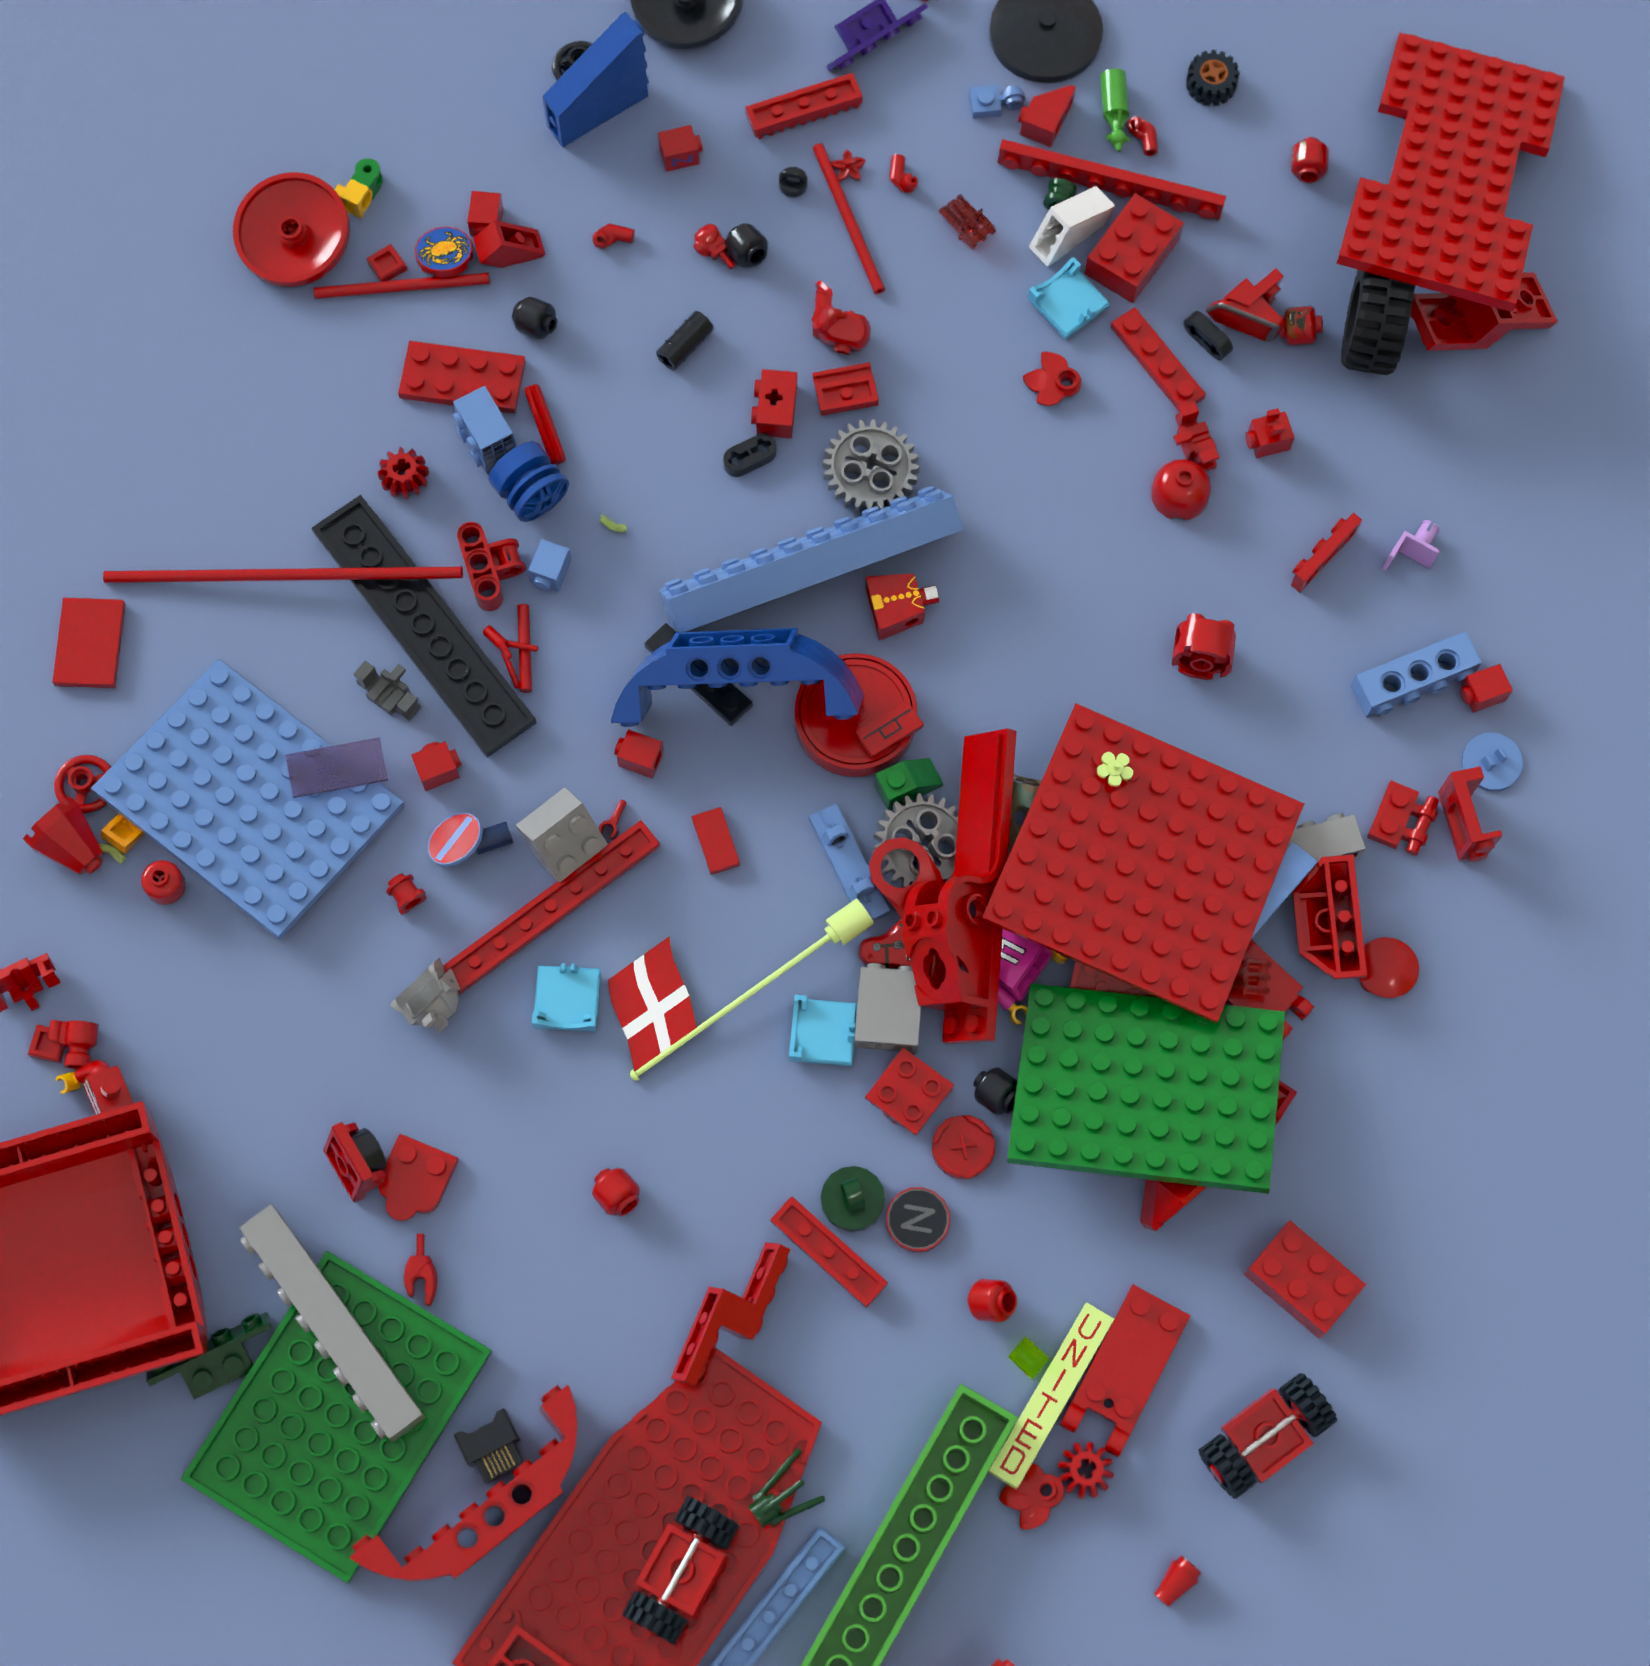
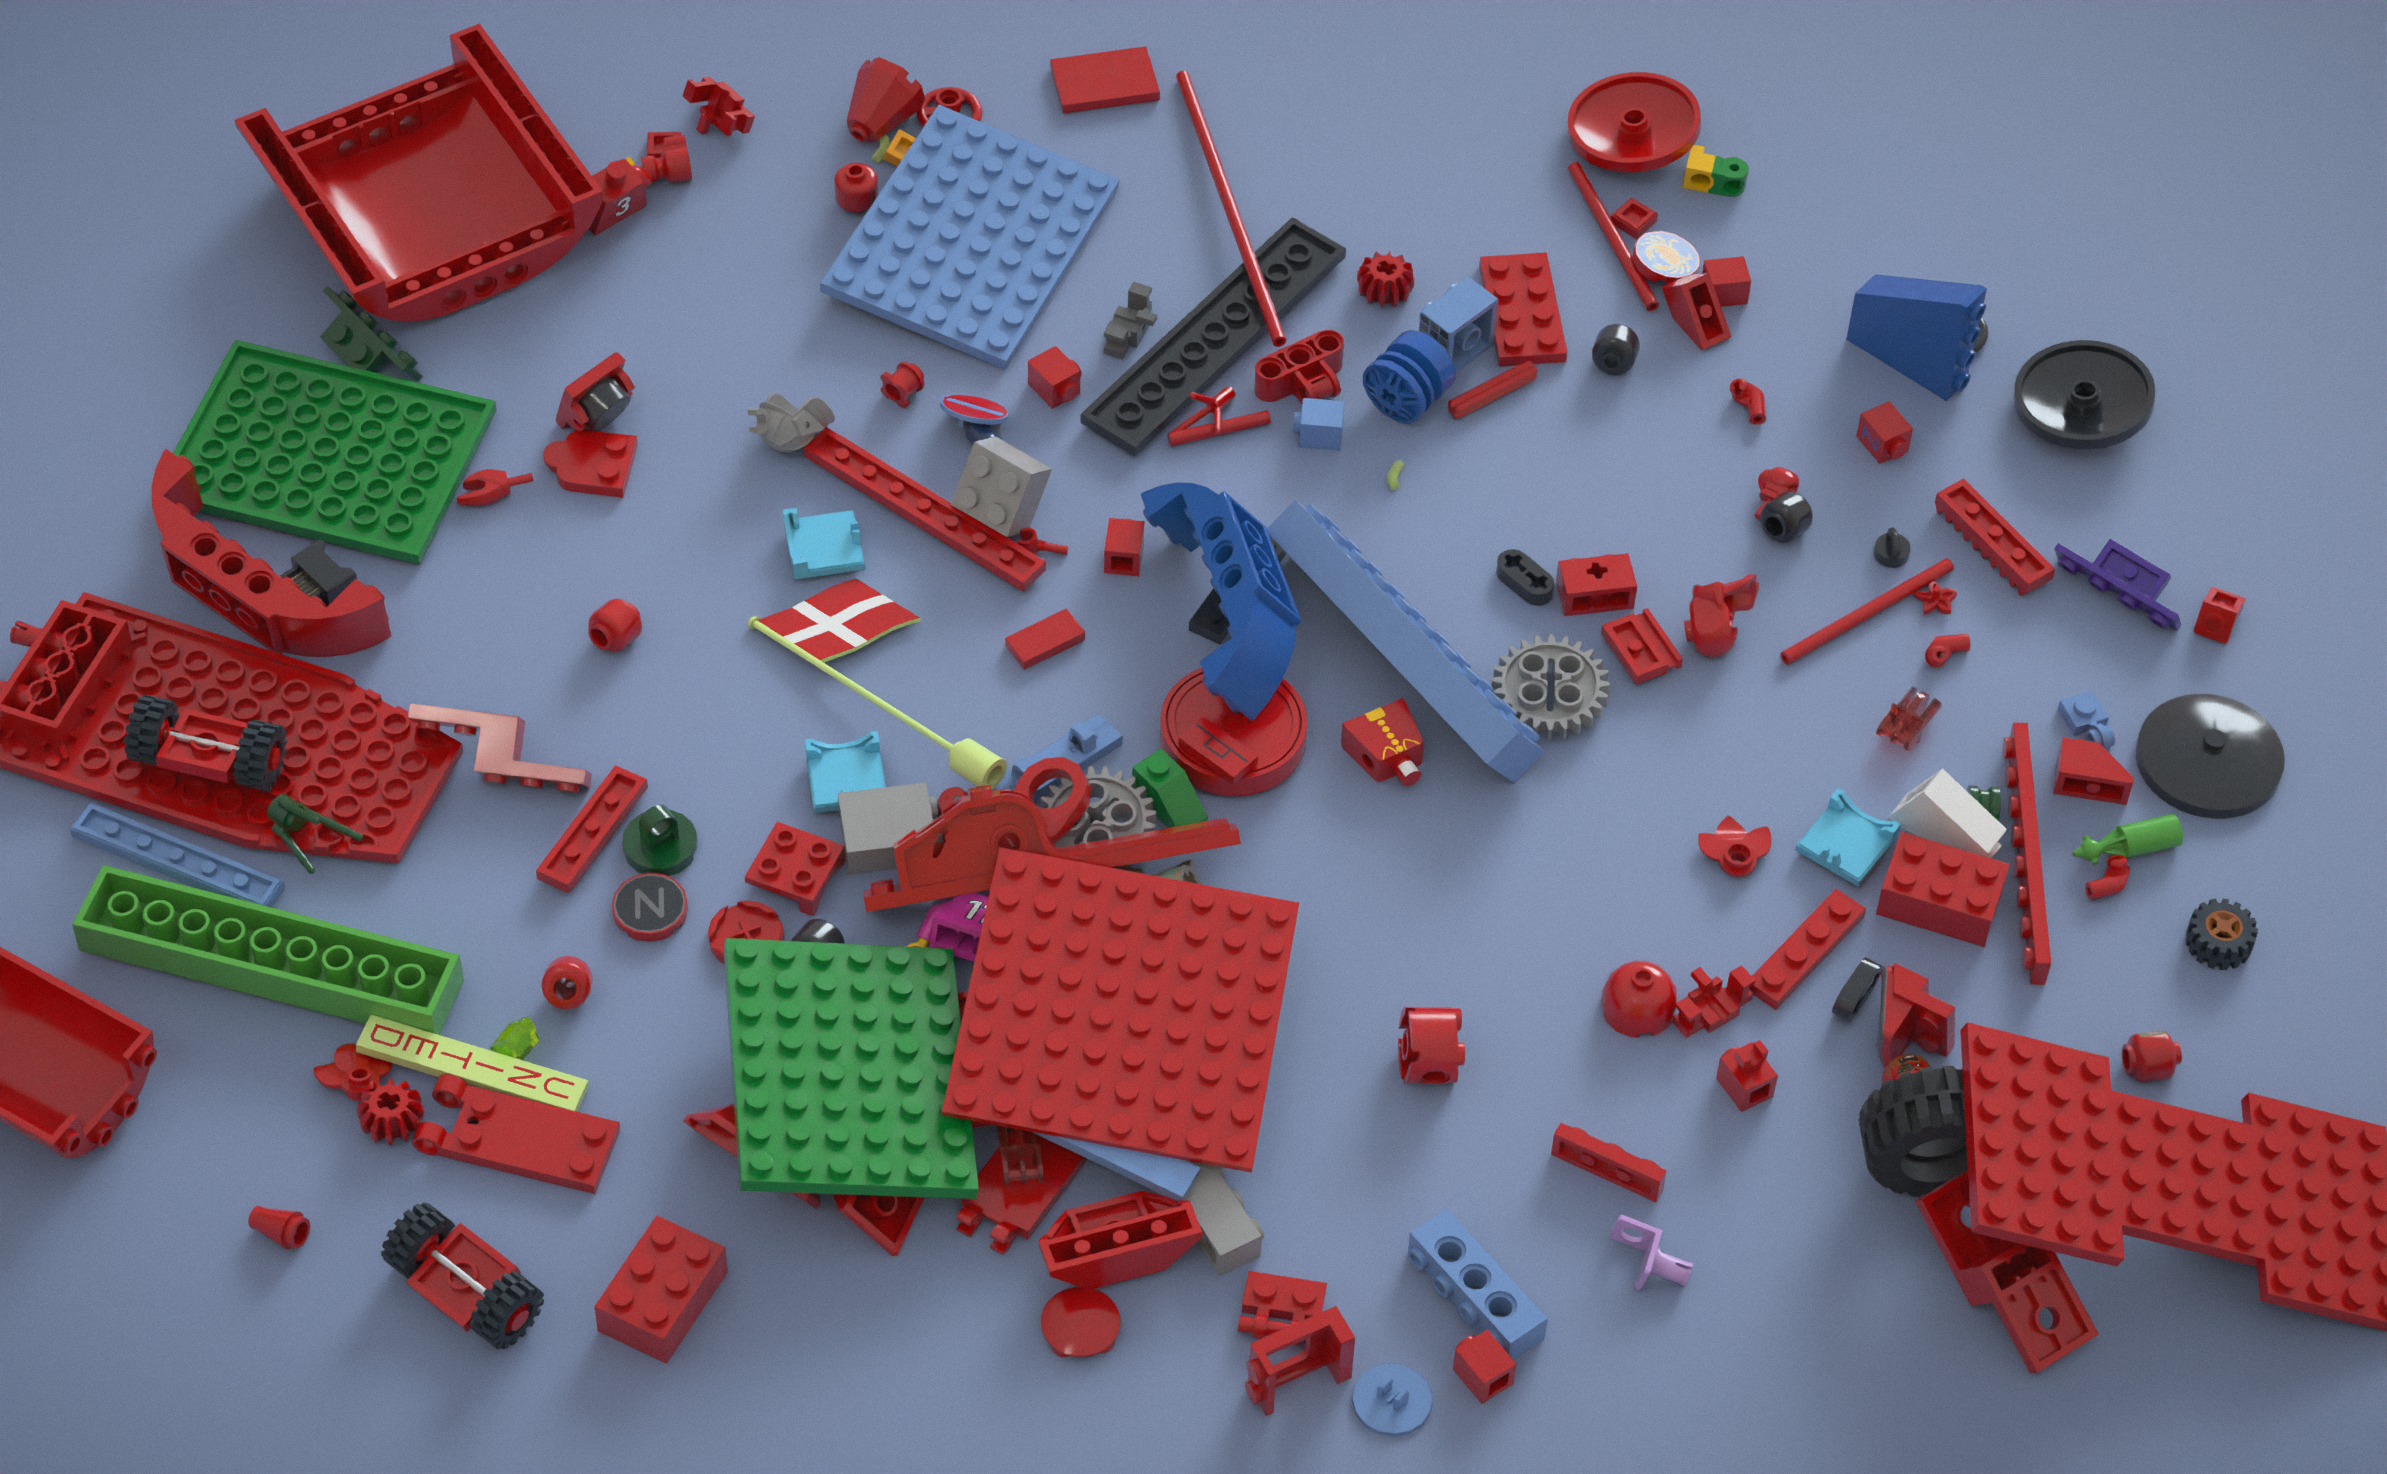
camera: 75 degrees right, 20 degrees down
(332, 1324) = (414, 413): light grey brick -> none
(336, 767) = (1024, 293): clear purple piece -> none
(684, 340) = (1643, 487): black axle -> none
(1114, 768) = (1224, 948): yellowish green plant -> none

